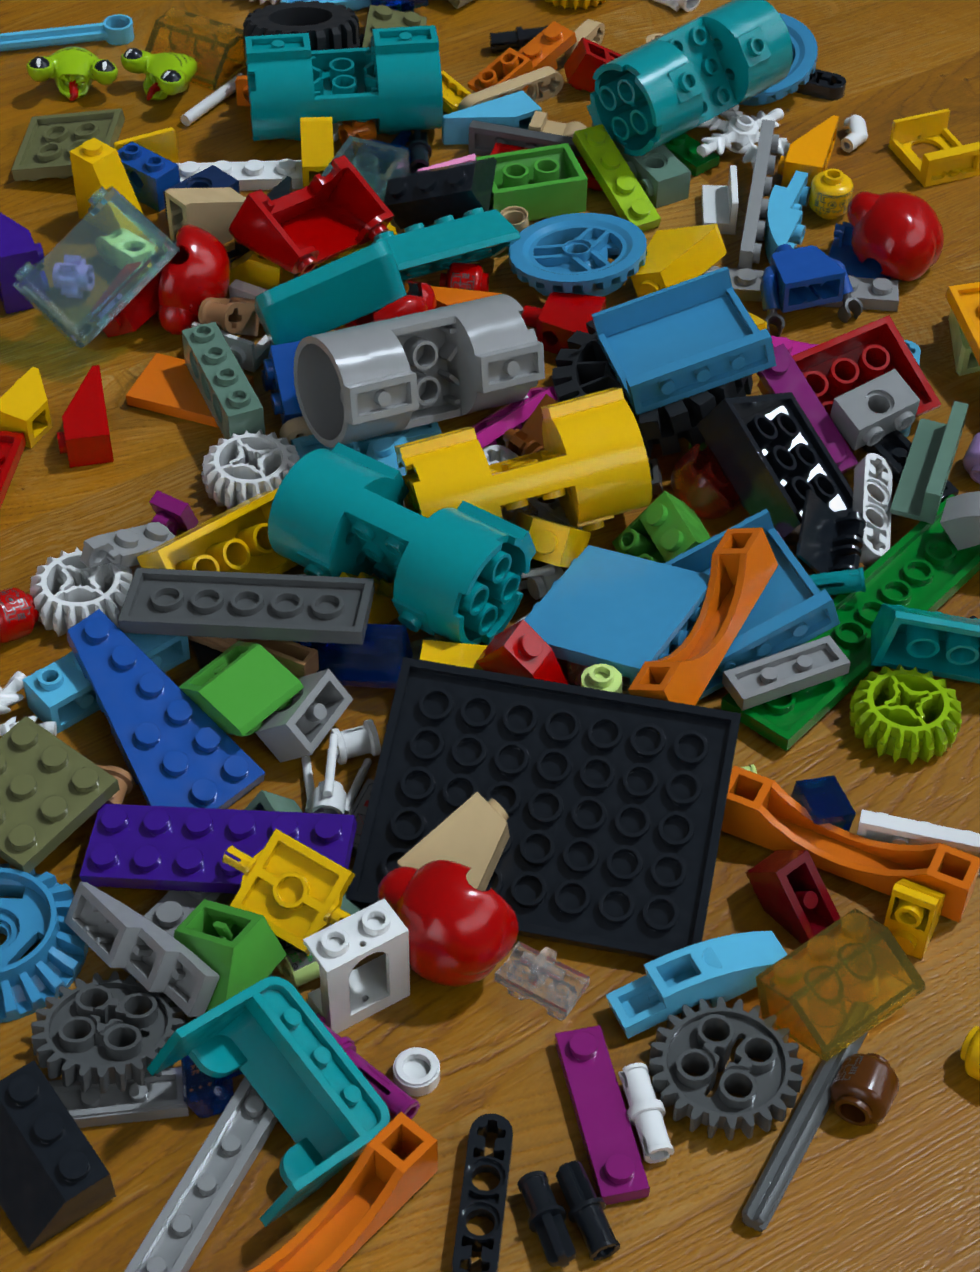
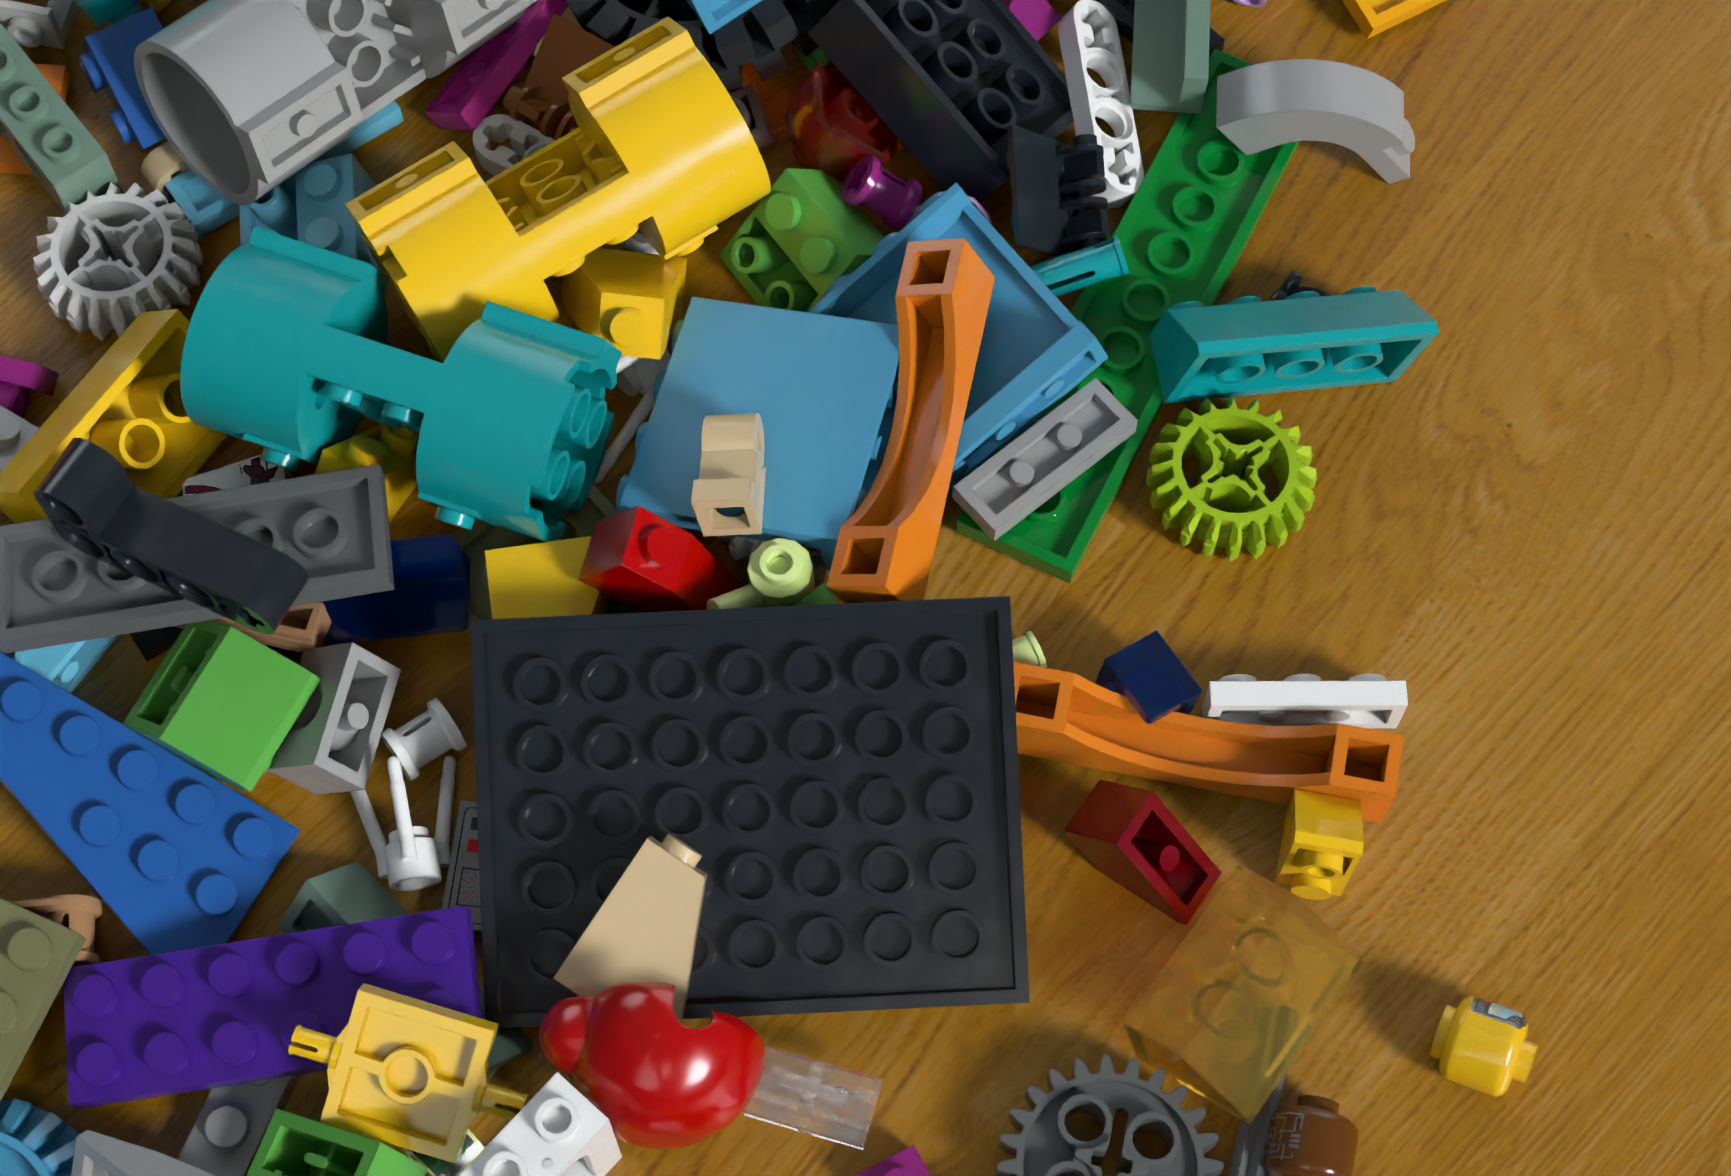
camera: 15 degrees left, 20 degrees up
(232, 583) = (164, 543): none -> black beam
(586, 617) = (730, 474): none -> tan leg
(696, 972) = (1036, 1033): medium azure slope -> none
(717, 516) = (881, 192): none -> magenta bush

